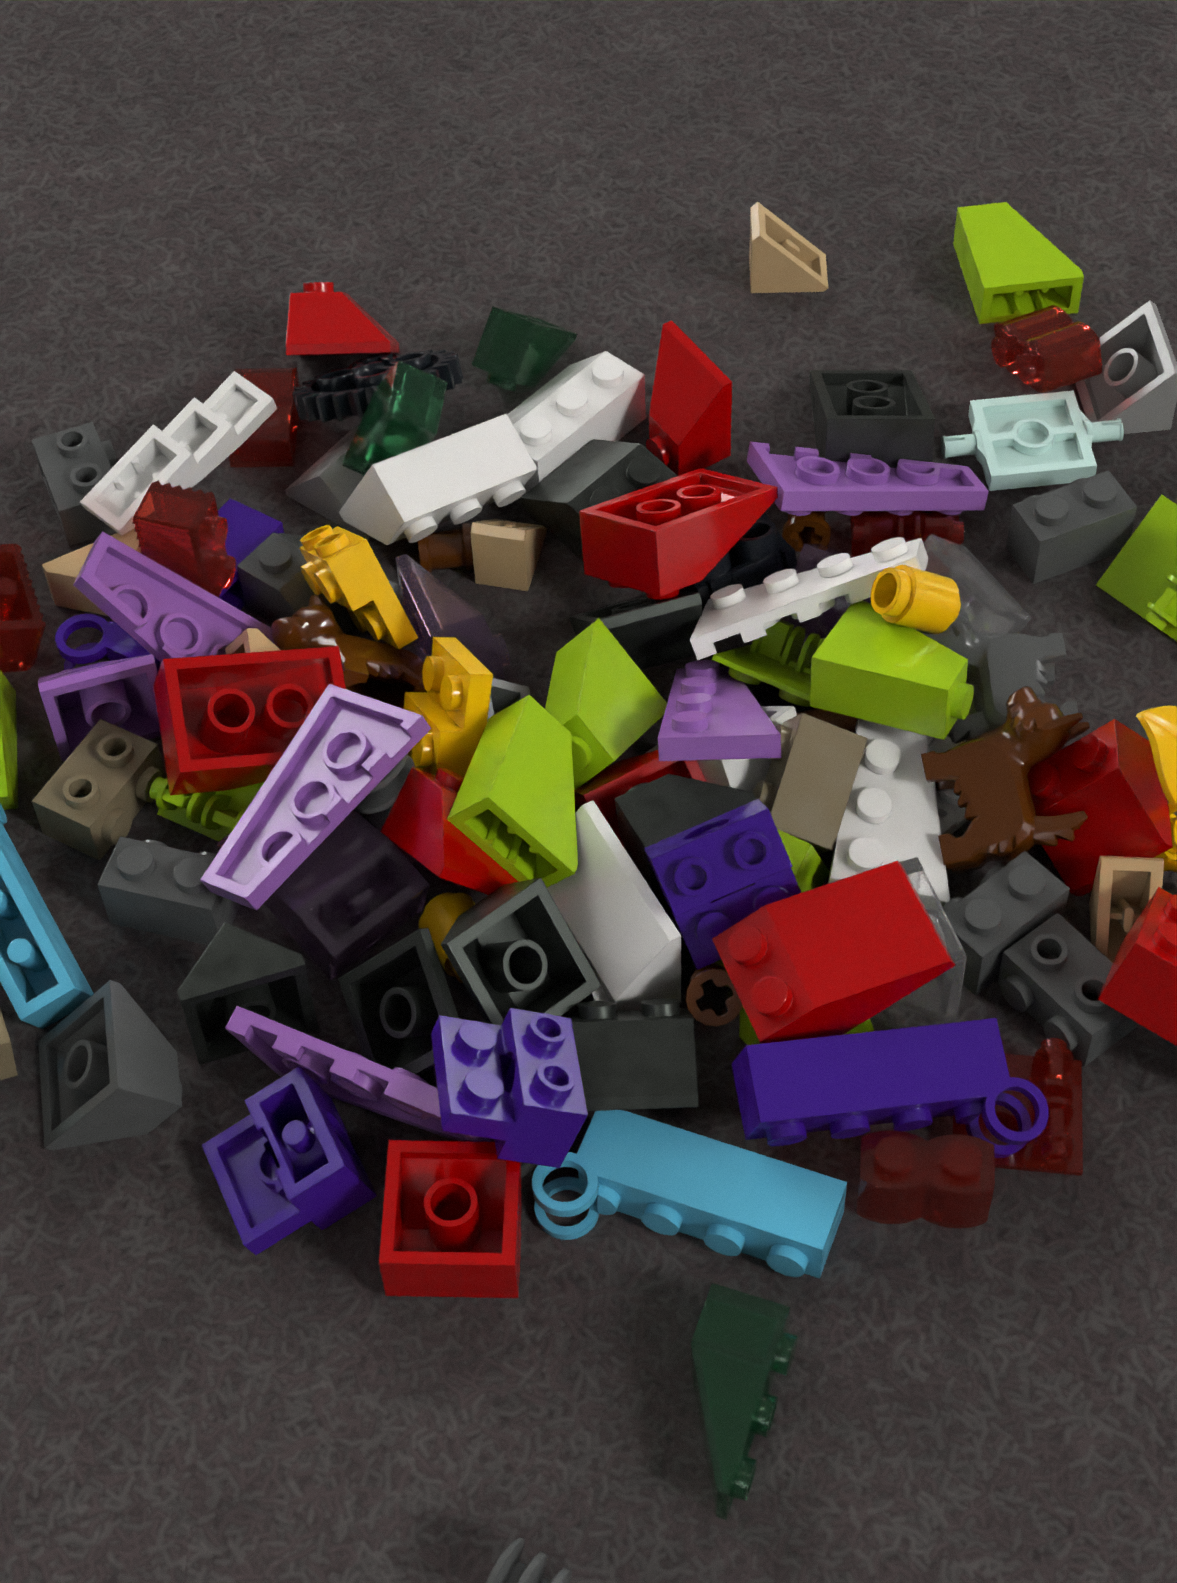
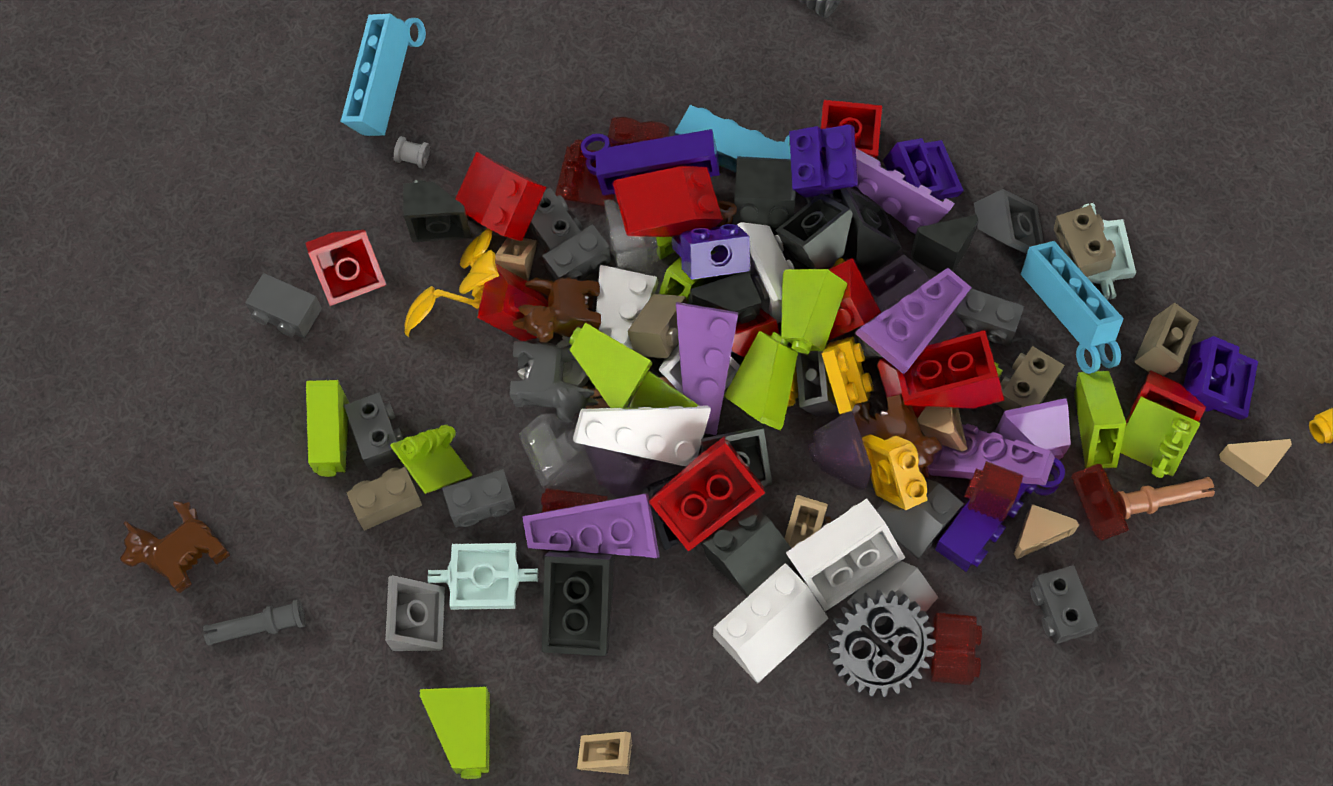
camera: 175 degrees left, 15 degrees up
(181, 452) = (1002, 593): white slope -> none
(332, 325) = (906, 699): red slope -> none
(398, 417) = (868, 569): clear green slope -> none
(519, 348) = (785, 691): clear green slope -> none
(688, 406) = (692, 606): red slope -> none
(733, 1365) = (732, 75): clear green slope -> none
(916, 598) = (588, 391): yellow brick -> none
(1047, 349) = (458, 639): clear red brick -> none

